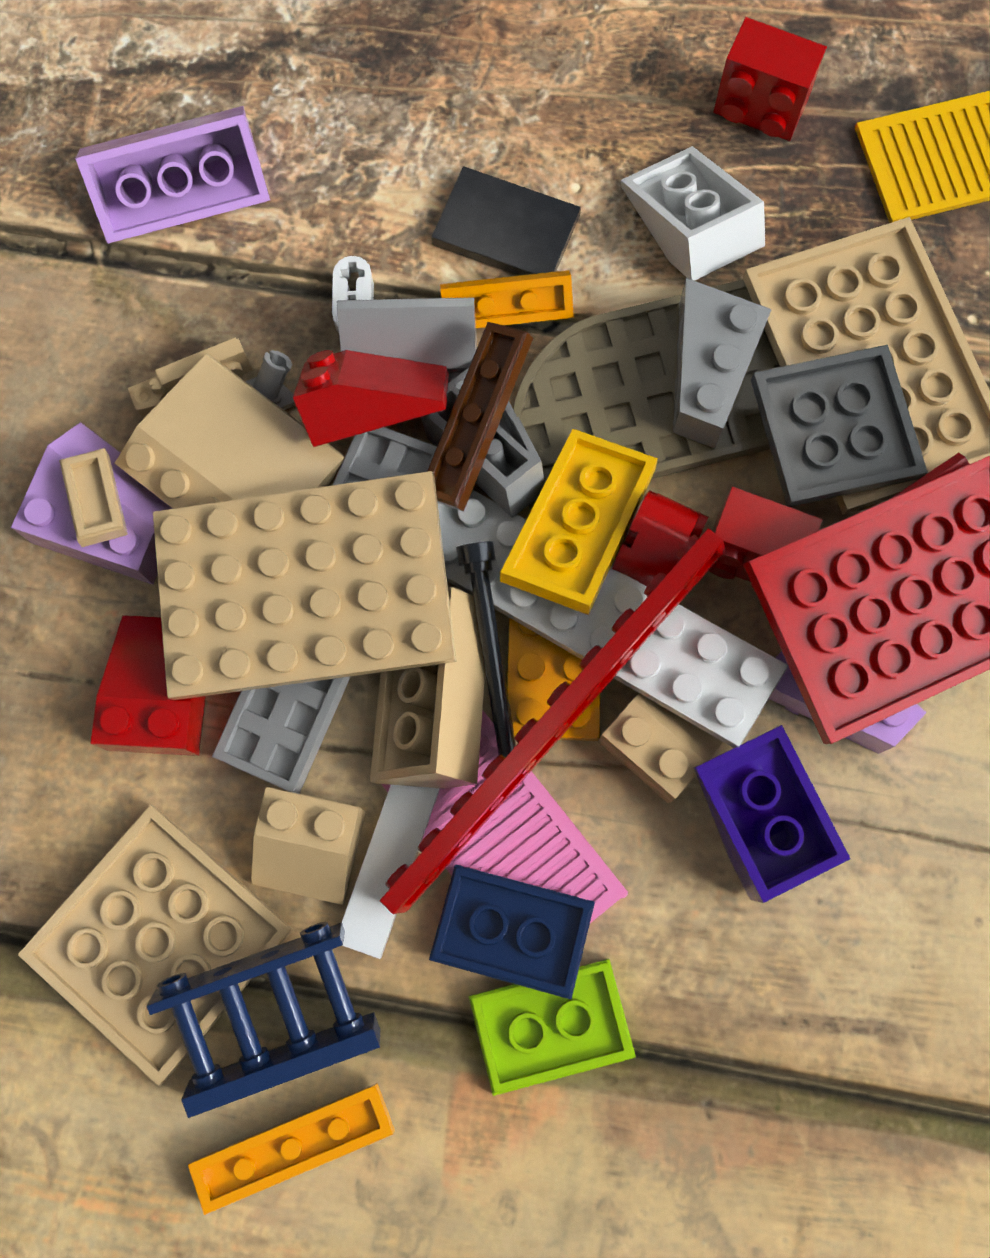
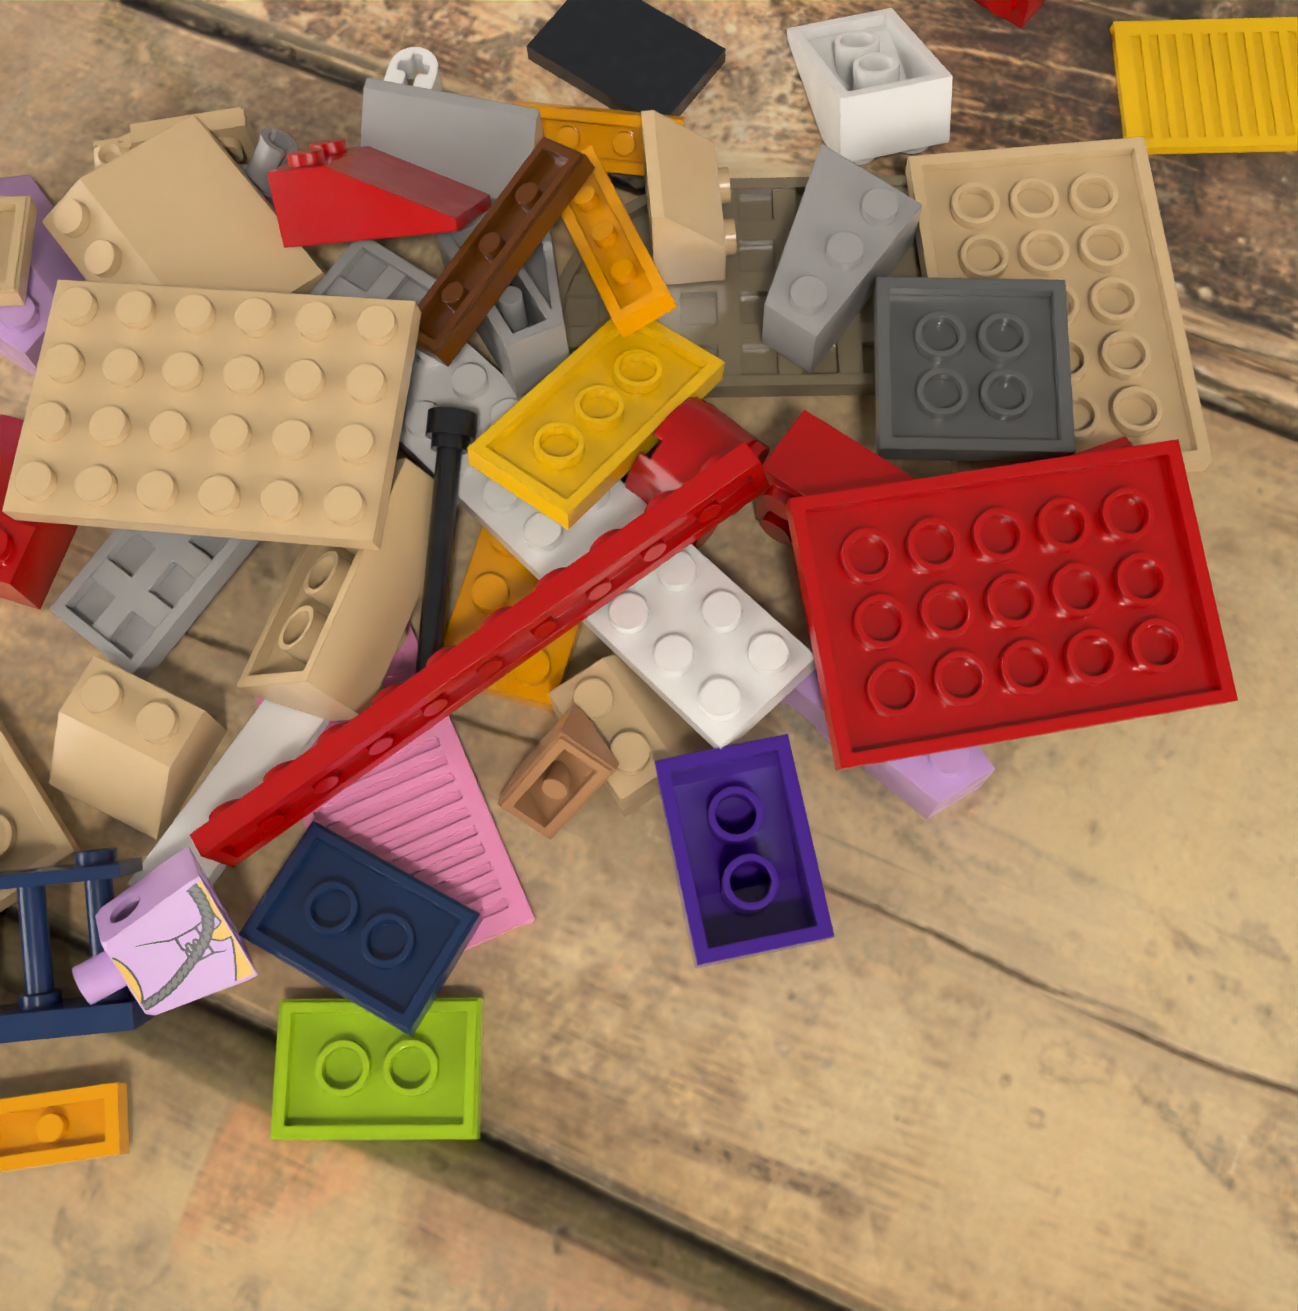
camera: 15 degrees right, 5 degrees down
(384, 979) = (166, 941): none -> lavender torso
(559, 396) = (615, 253): none -> light orange plate
(594, 344) = (685, 202): none -> tan slope
(622, 788) = (559, 774): none -> medium nougat slope

